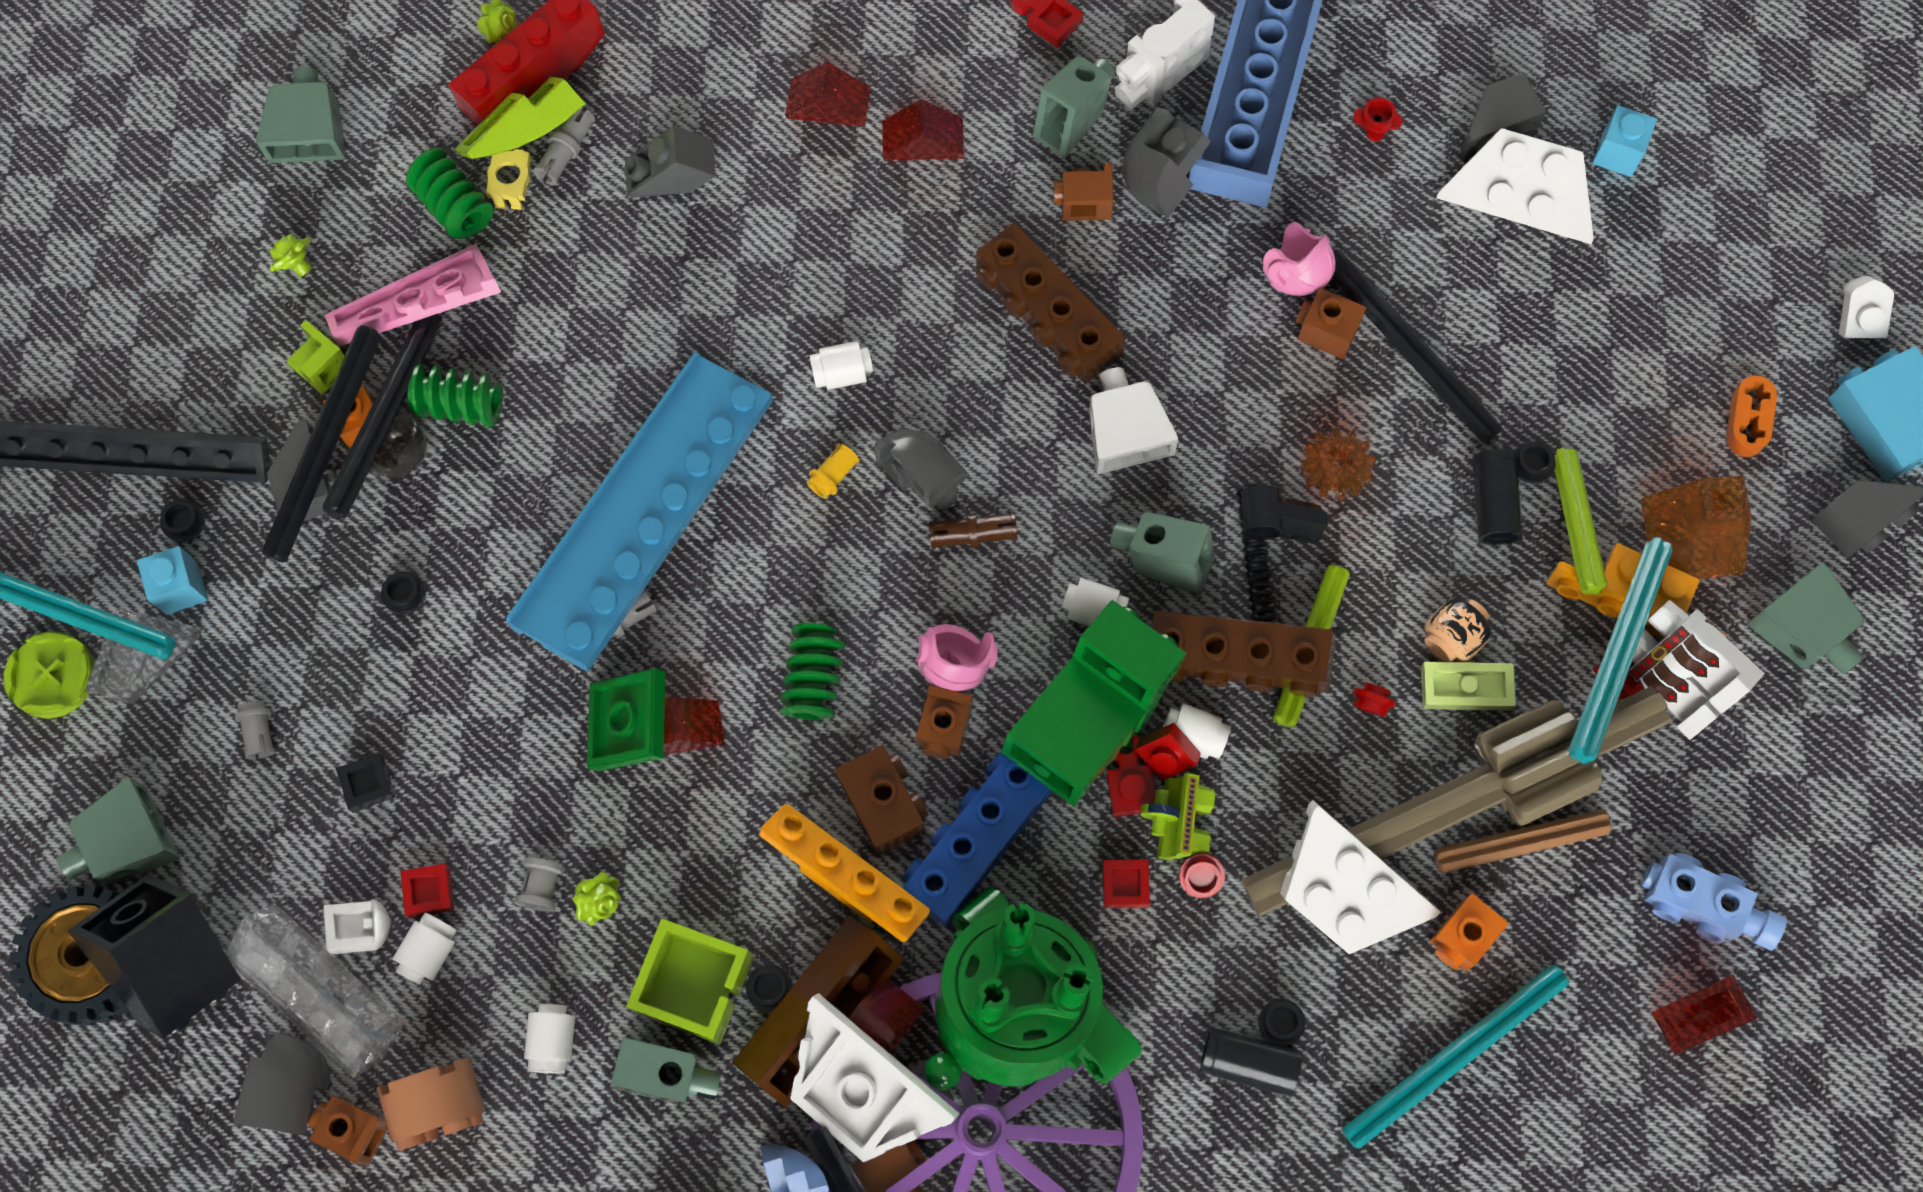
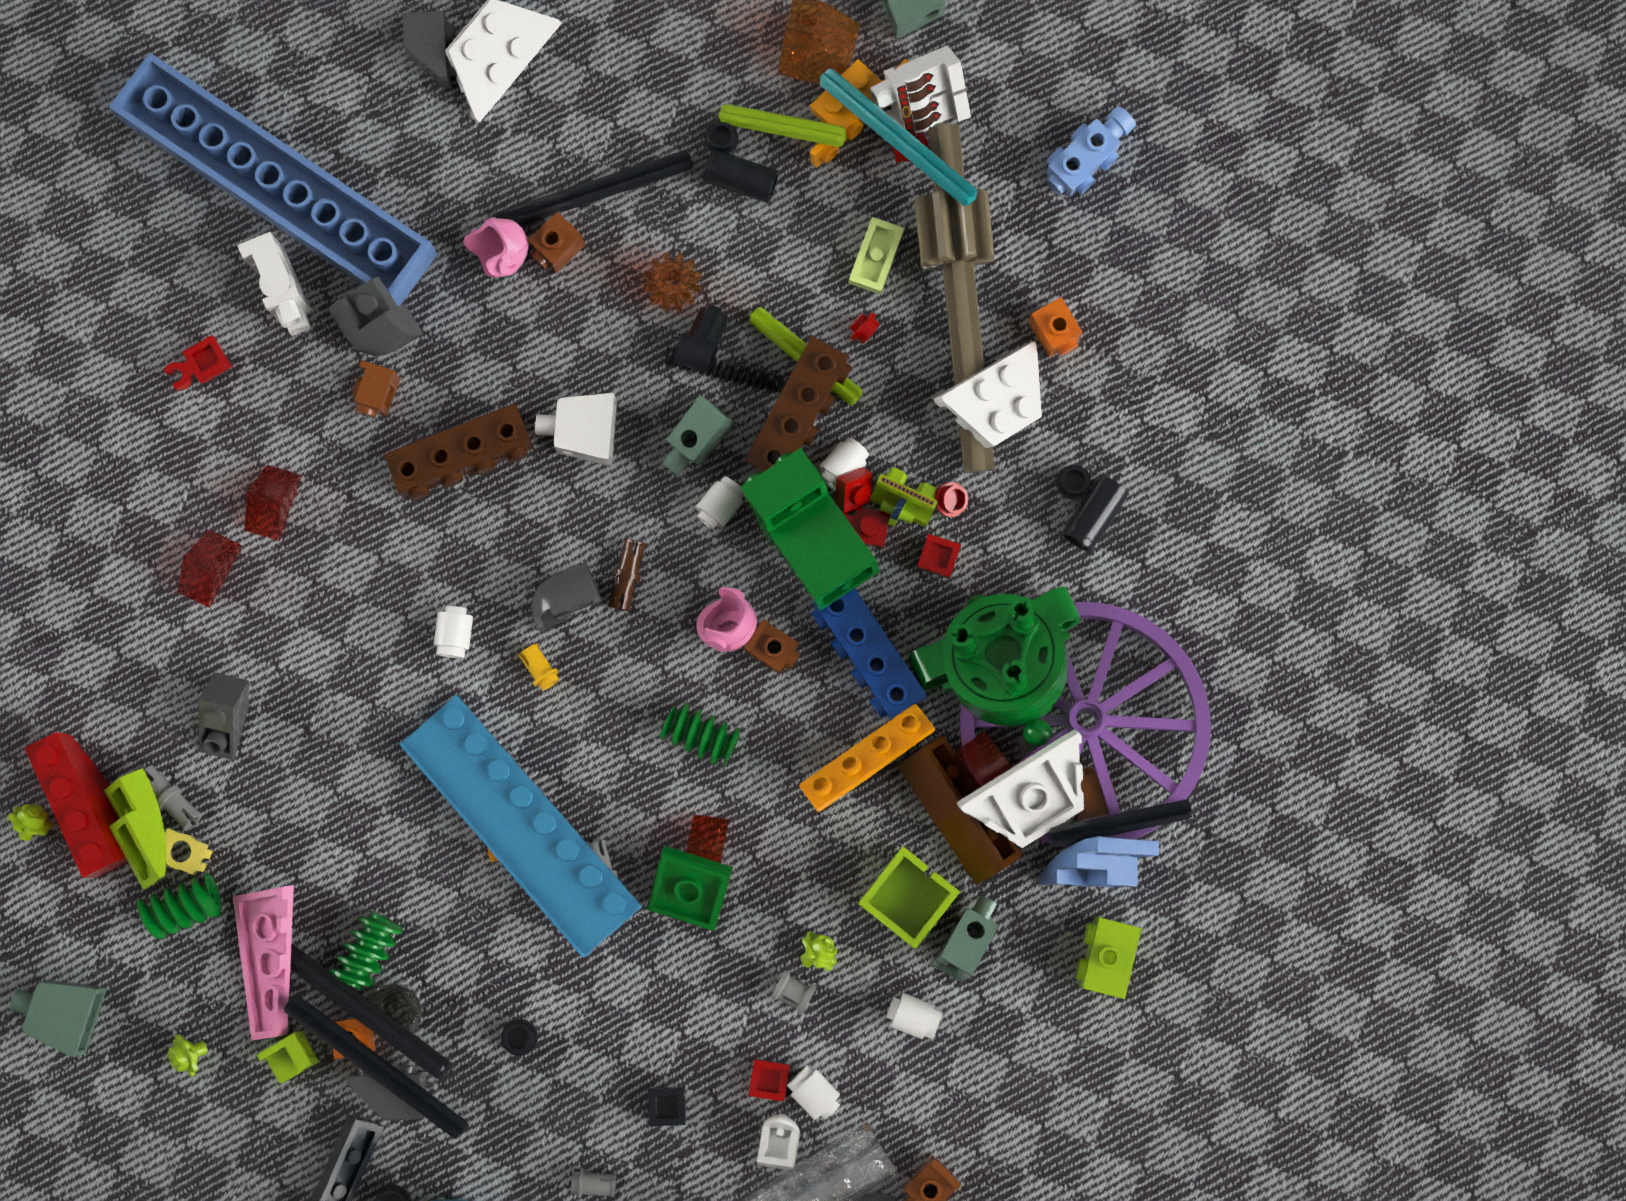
camera: 75 degrees left, 10 degrees up
(431, 1100) = (935, 1116): nougat brick -> none
(767, 987) = (927, 842): black plate -> none
(881, 799) = (816, 713): reddish brown brick -> none
(1072, 103) = (293, 371): sand green torso -> none
(1382, 109) = (388, 131): red plate -> none
(1455, 1056) = (1136, 370): teal axle -> none
(1457, 630) = (832, 246): light nougat head -> none
(1522, 841) = (1002, 263): medium nougat axle -> none
(1704, 1014) = (1164, 190): clear red slope -> none

